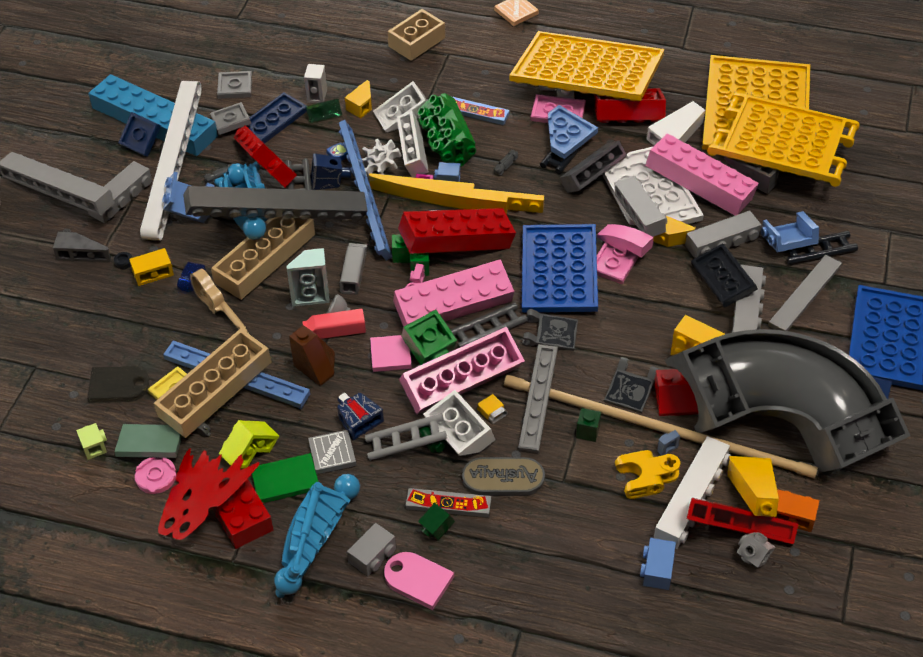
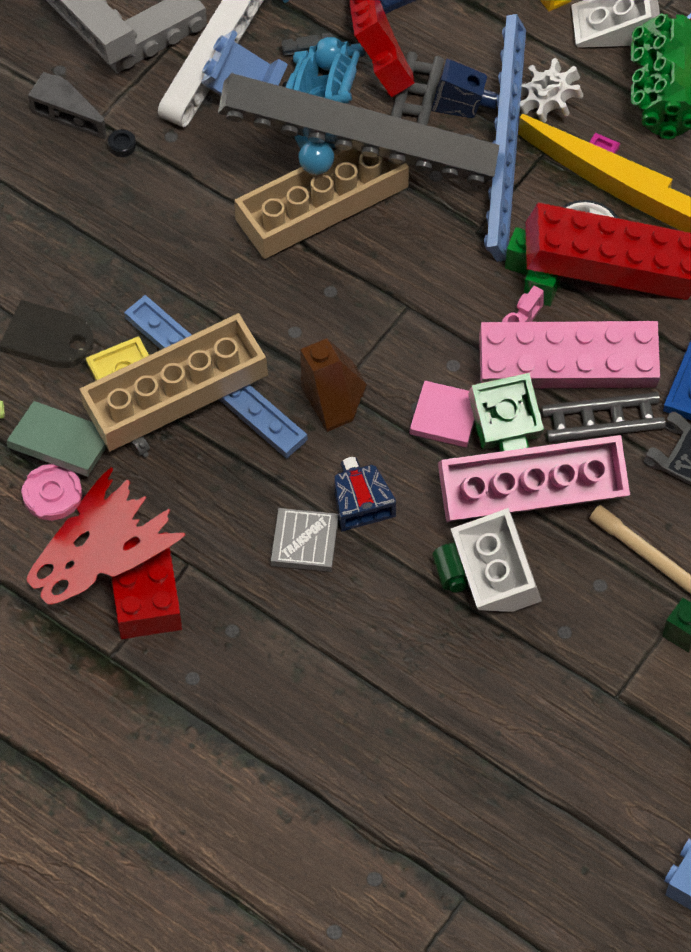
camera: 20 degrees right, 10 degrees up
(151, 267) = (156, 167): yellow brick -> none
(184, 281) = (206, 197): clear blue plate -> none
(212, 296) = (225, 251): tan piece -> none
(248, 439) = (192, 485): neon yellow brick -> none
(284, 478) = (225, 558): green tile -> none
(308, 278) = (366, 261): light aqua slope -> none
(311, 529) = (229, 650): dark azure piece -> none
(337, 150) = (490, 59): tile -> none
(337, 323) = (382, 343): coral piece -> none
(338, 304) = (395, 319): light grey brick -> none
(353, 268) = (441, 260): light grey piece -> none
(371, 549) = (303, 708): light grey brick -> none
(412, 144) = (606, 82): white brick -> none
(414, 443) = (426, 566): light grey bar -> none
(419, 578) = (352, 773): bright pink tile -> none
(435, 522) = (406, 698): dark green brick -> none
(448, 172) = (642, 148): medium blue brick -> none
(449, 501) = (438, 673): tile -> none
(492, 409) = (557, 551): yellow piece -> none
(503, 476) = (532, 660): tile -> none
(538, 399) = (629, 558): light grey tile -> none

